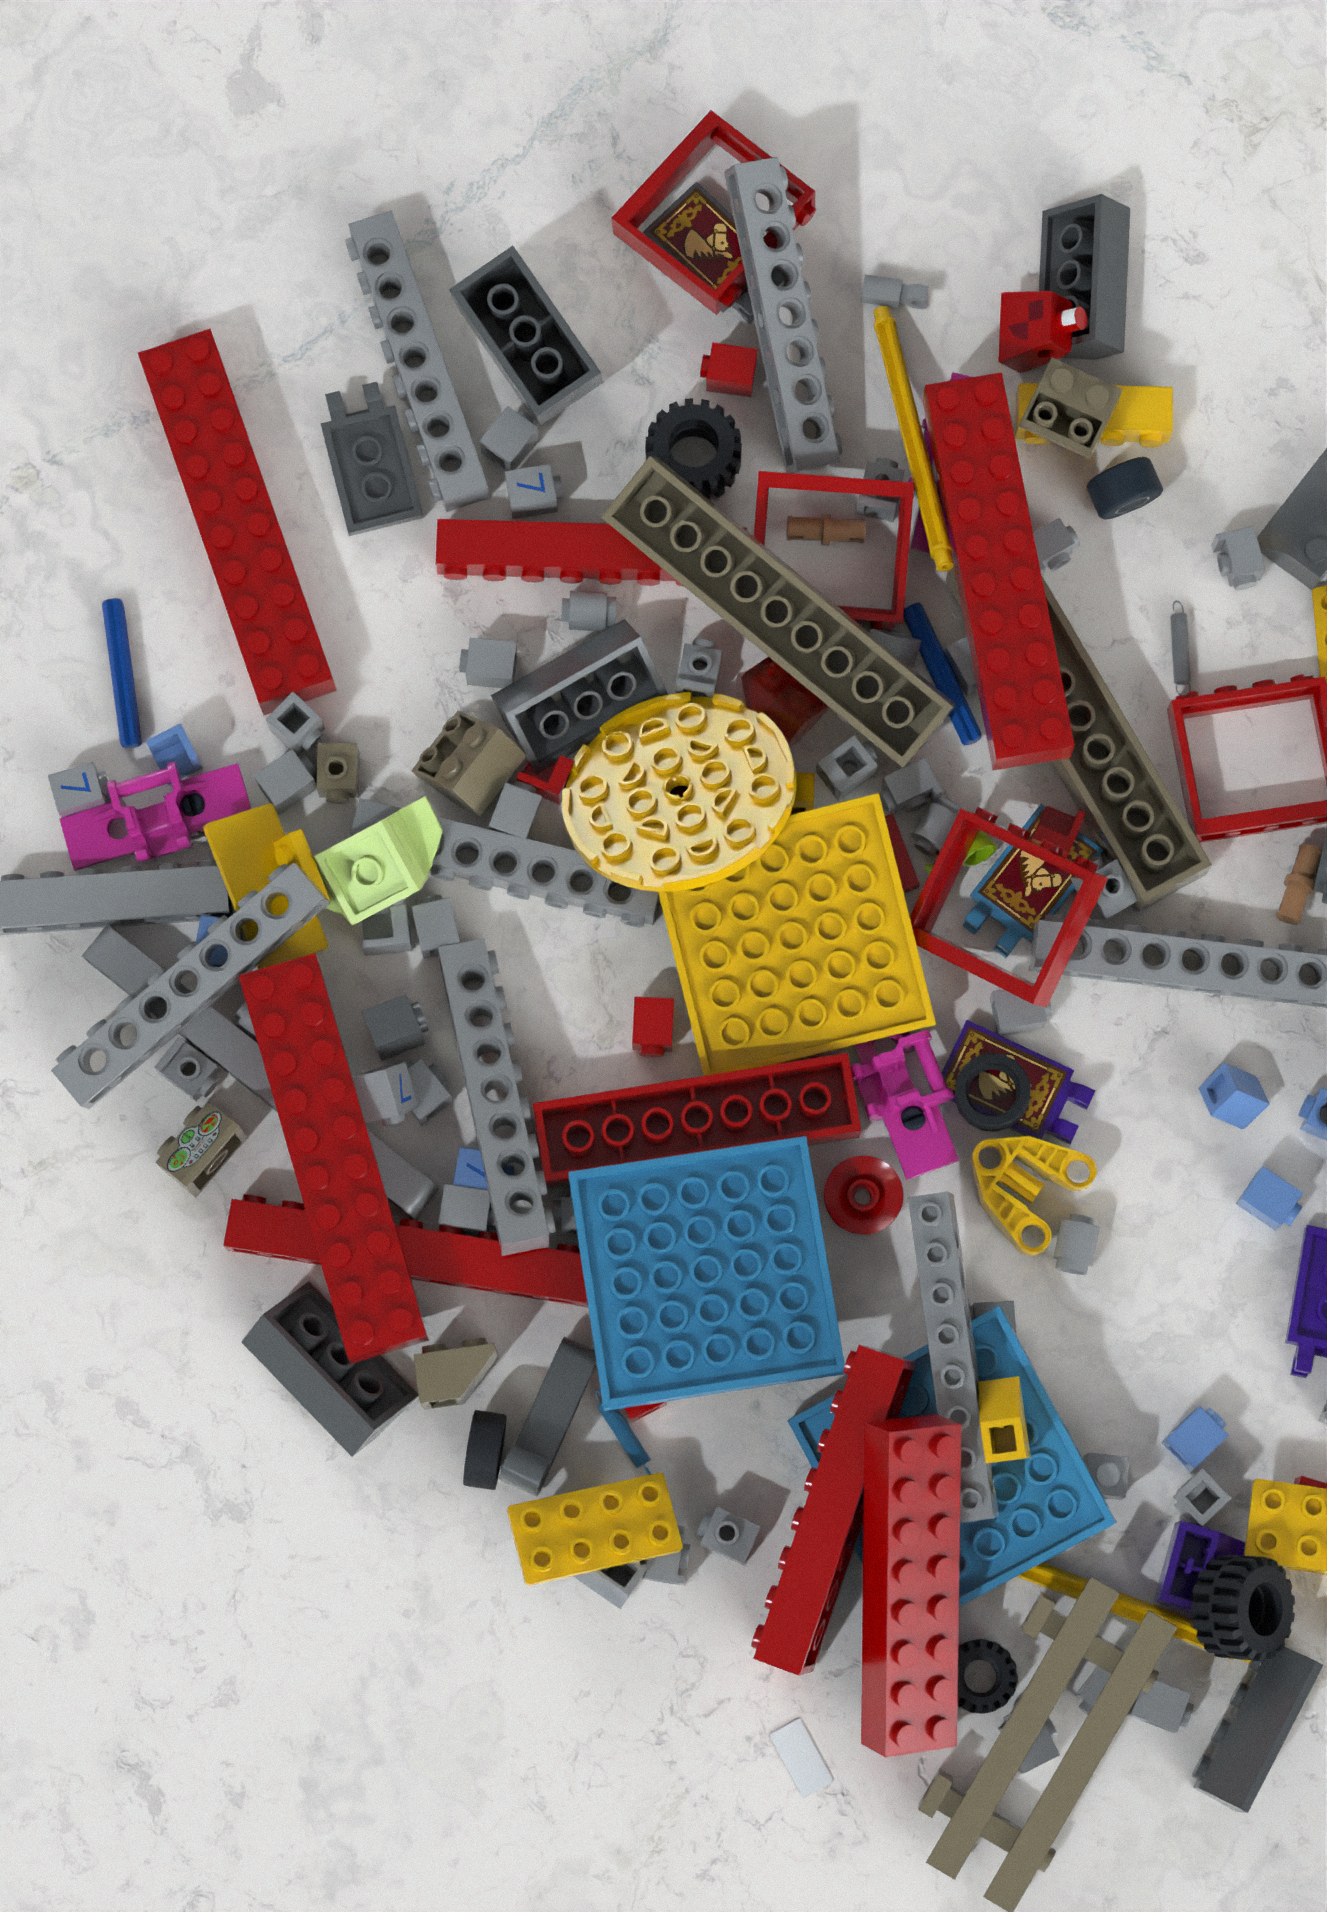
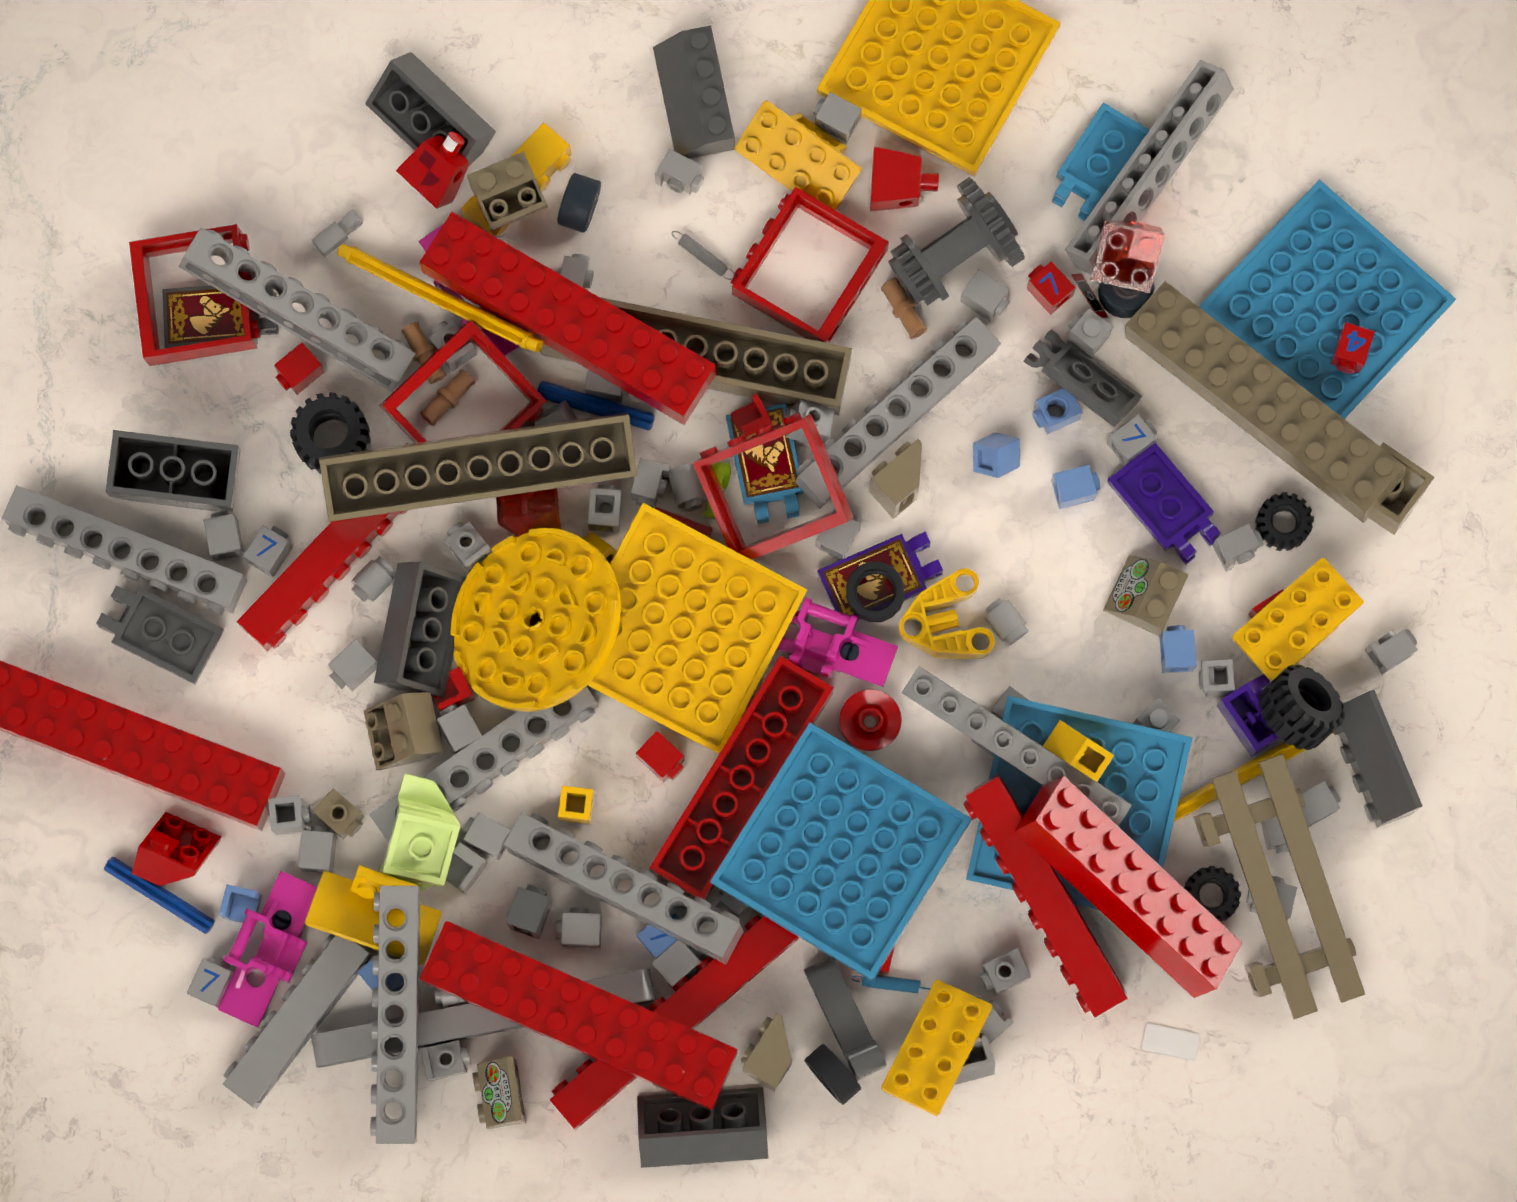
camera: 50 degrees left, 0 degrees up
(173, 648) = (173, 850): none -> red slope
(386, 1093) = (567, 950): light grey brick -> none
(536, 984) = (576, 805): none -> yellow brick
(851, 467) = (422, 348): none -> medium nougat pin
(1123, 1021) = (897, 483): none -> dark tan slope
(1225, 1359) = (1146, 593): none -> dark tan slope

